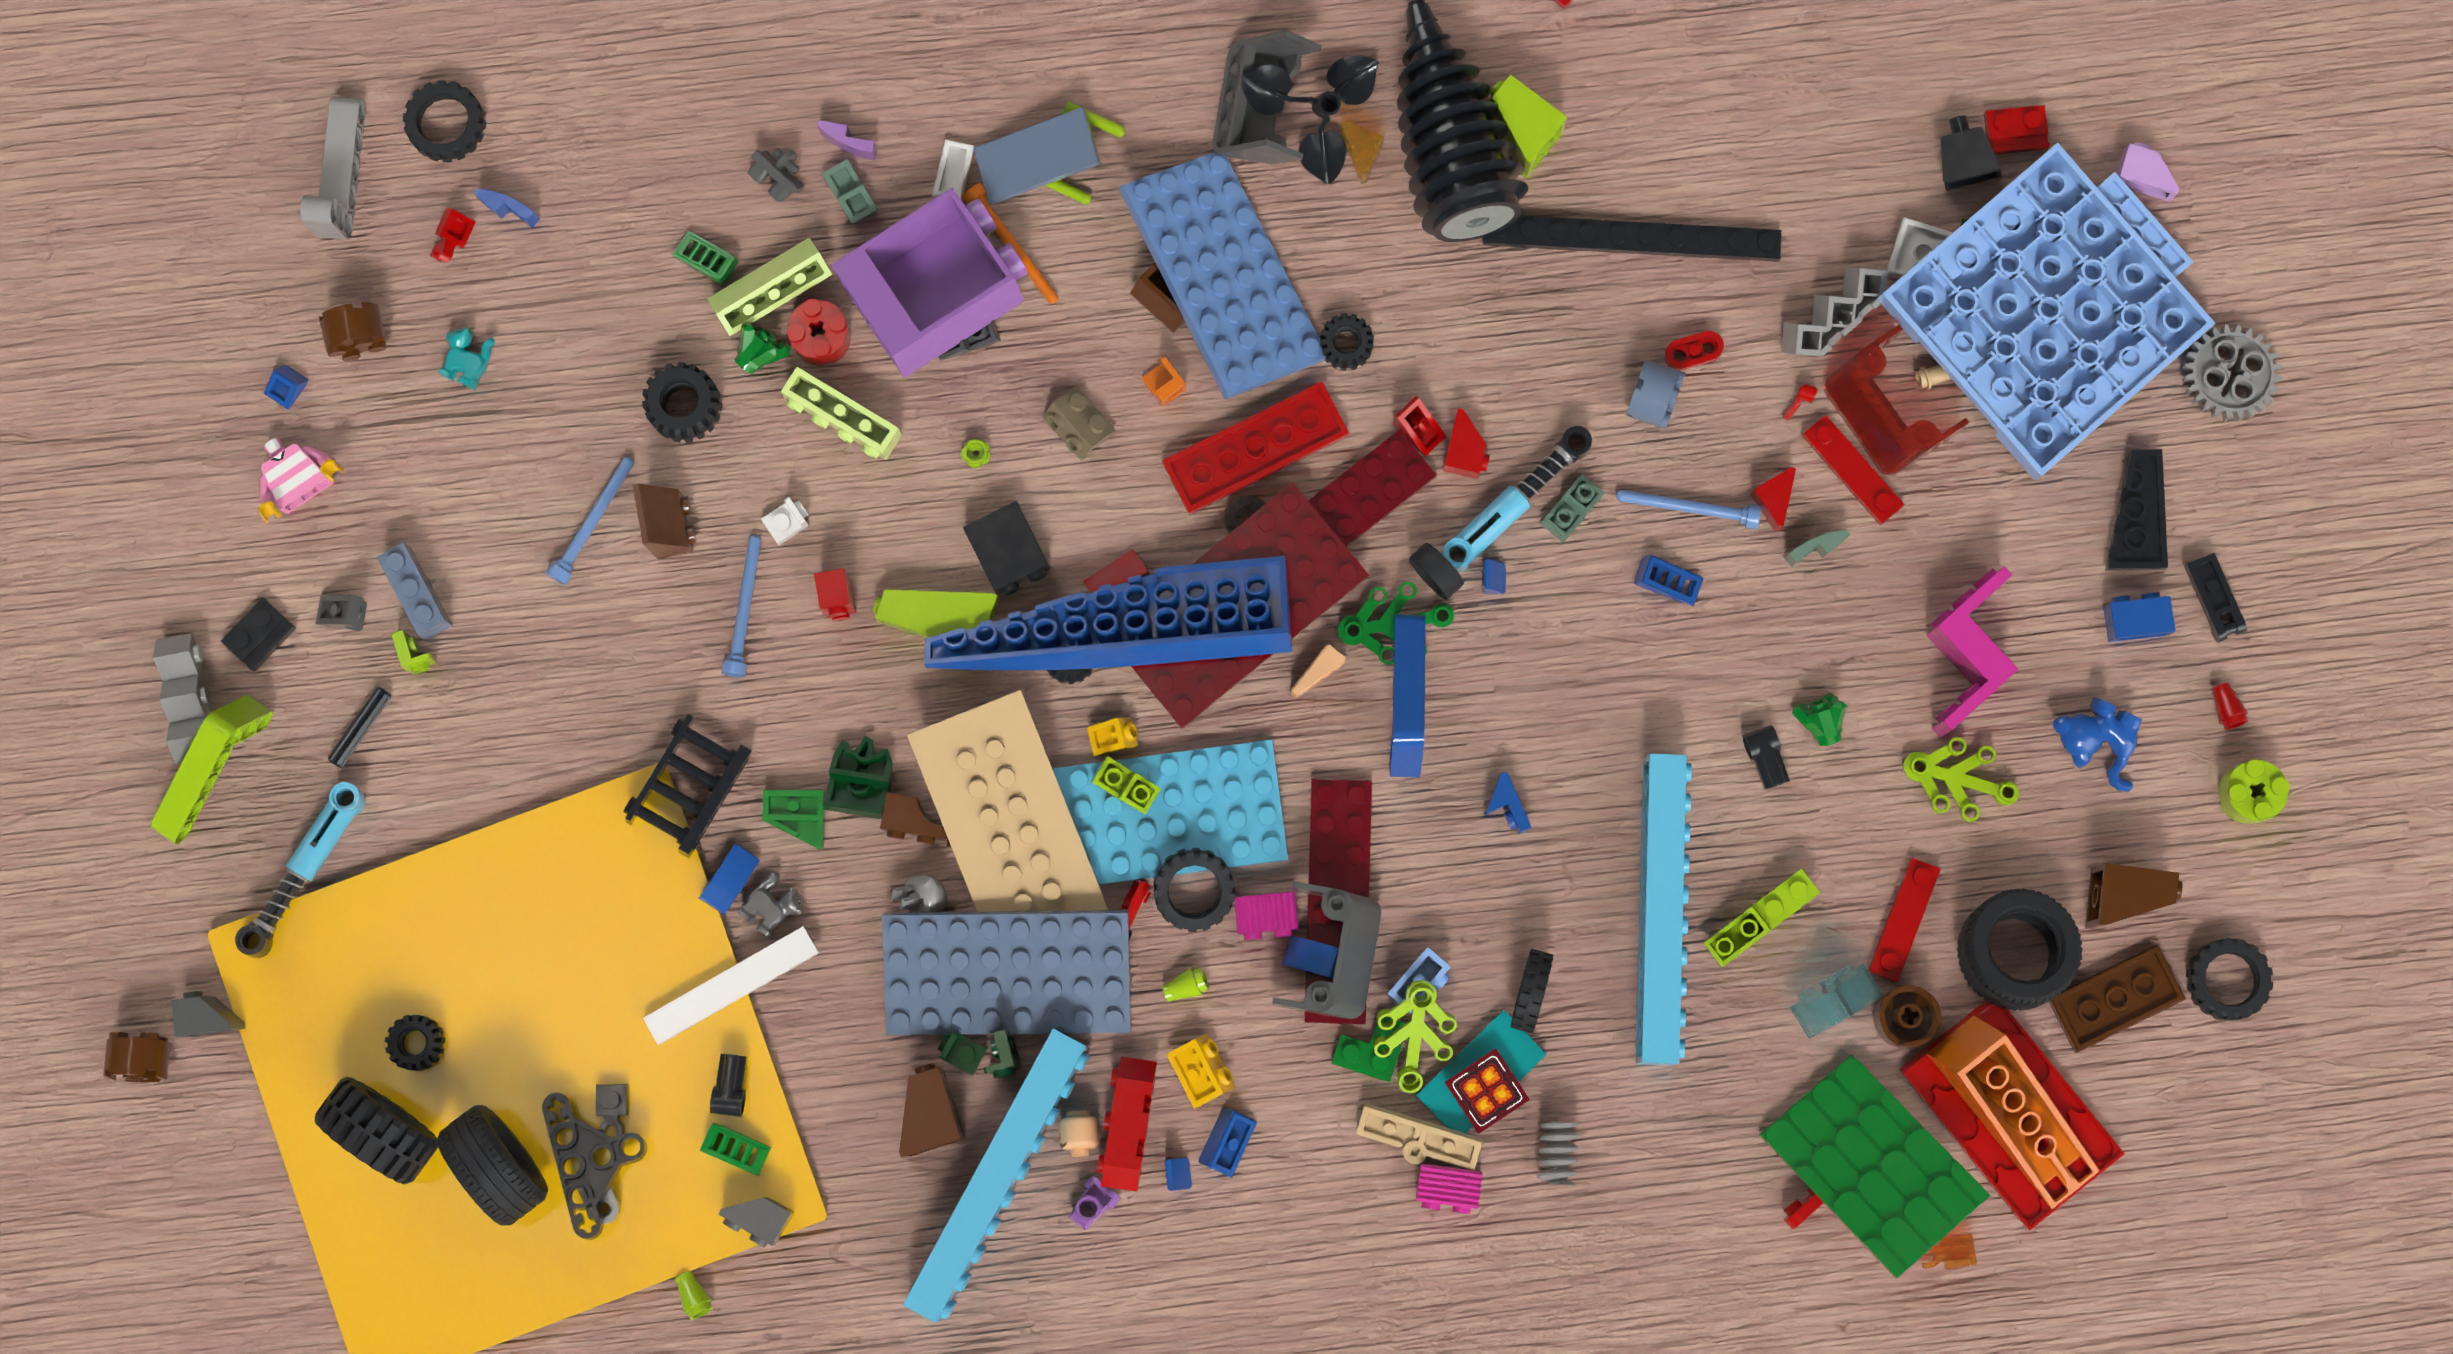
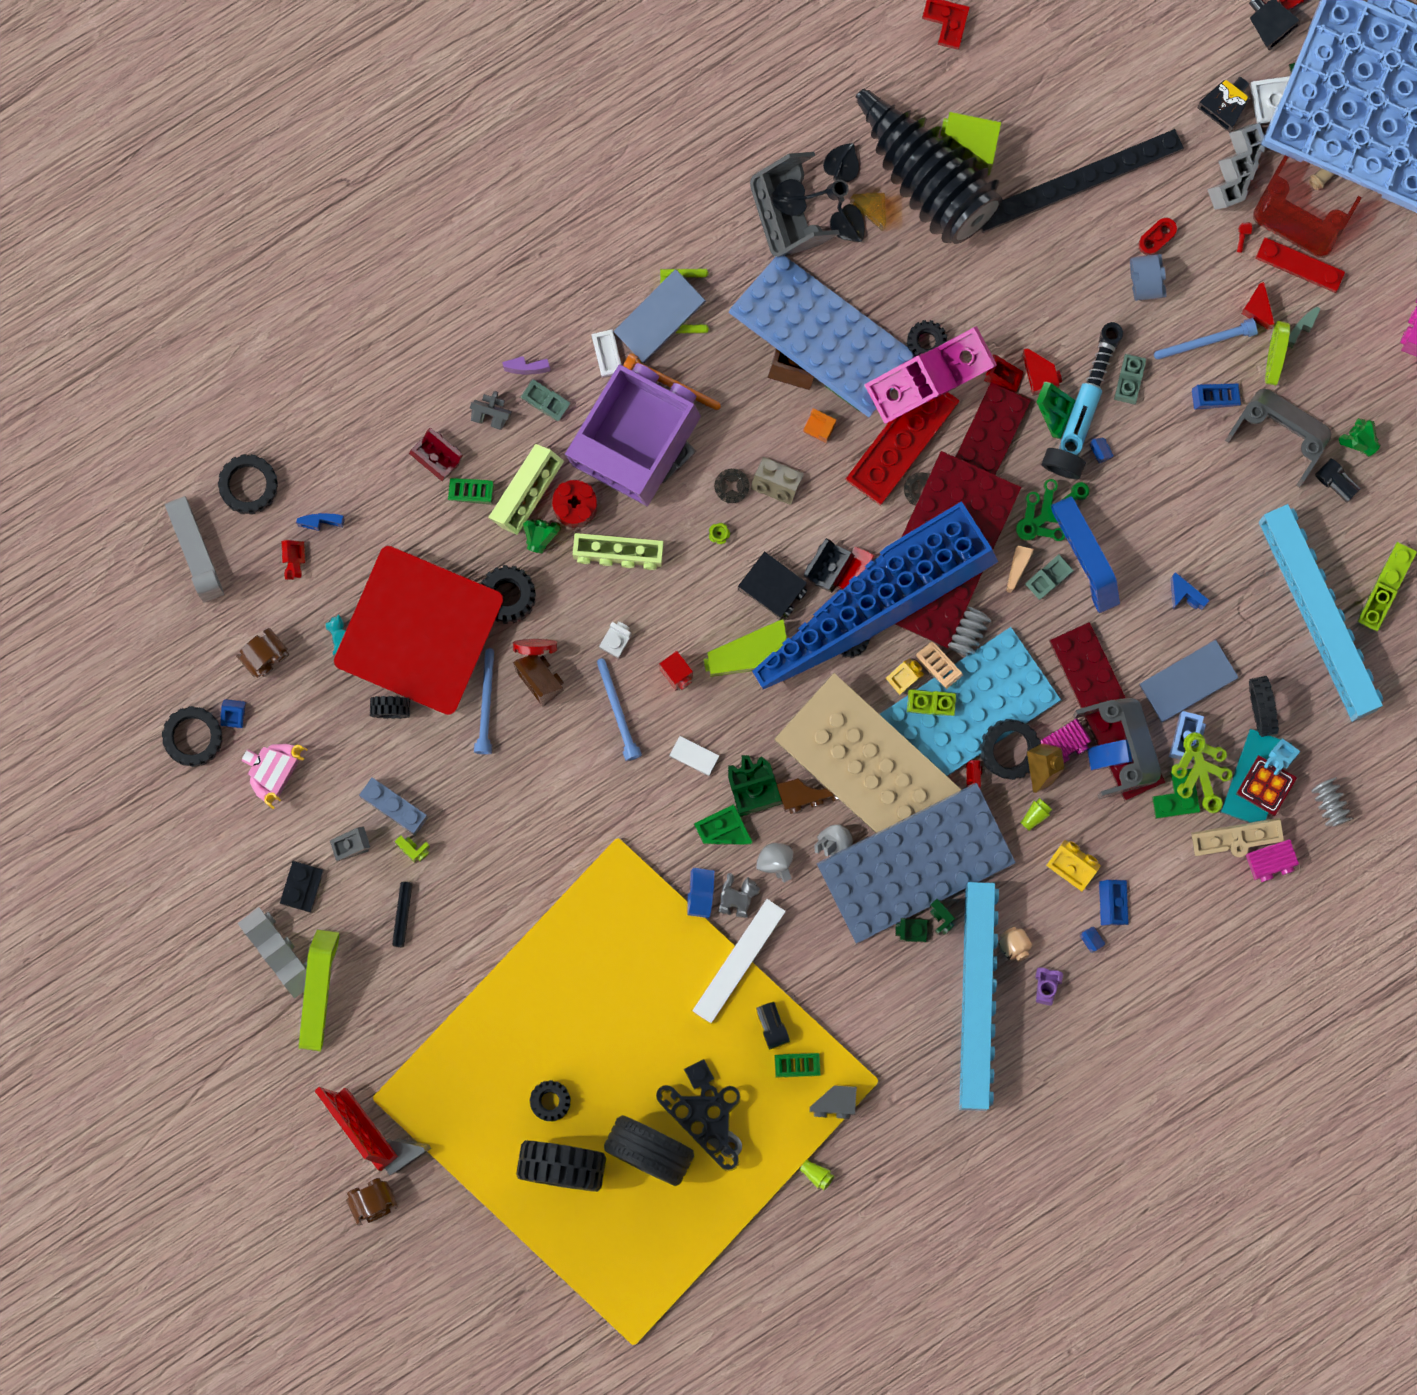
camera: 30 degrees left, 0 degrees up
(170, 945) = (357, 1126): none -> red fence
(198, 371) = (182, 715): none -> black tyre
(302, 866) = (414, 1023): piece -> none
(470, 469) = (389, 707): none -> black tyre
(550, 392) = (418, 630): none -> red piece
(680, 480) = (534, 646): none -> red tile
(685, 194) = (436, 454): none -> dark red bracket
(701, 811) = (662, 835): black fence -> none
(808, 708) = (694, 756): none -> white tile
(839, 883) = (776, 859): none -> light grey piece
(929, 1113) = (913, 978): reddish brown slope -> none
(1027, 391) = (731, 496): none -> clear smoke gear
(1087, 556) = (828, 565): none -> black bracket
(1127, 1123) = (1044, 922): red brick -> none
(1153, 726) = (931, 654): none -> light nougat slope
(1217, 721) = (969, 631): none -> light grey piece
(1224, 930) = (1044, 765): none -> pearl gold slope
(1323, 382) = (930, 375): none -> dark pink bracket
(1350, 702) = (1049, 577): none -> sand green slope
(1457, 913) = (1188, 681): none -> sand blue tile
(1460, 498) = (1055, 408): none -> green wing
(1524, 1063) = (1282, 756): none -> medium azure plate
(1766, 682) = (1267, 403): none -> dark grey windscreen
(1769, 562) = (1277, 352): none -> lime piece
(1859, 228) = (1225, 103): none -> torso

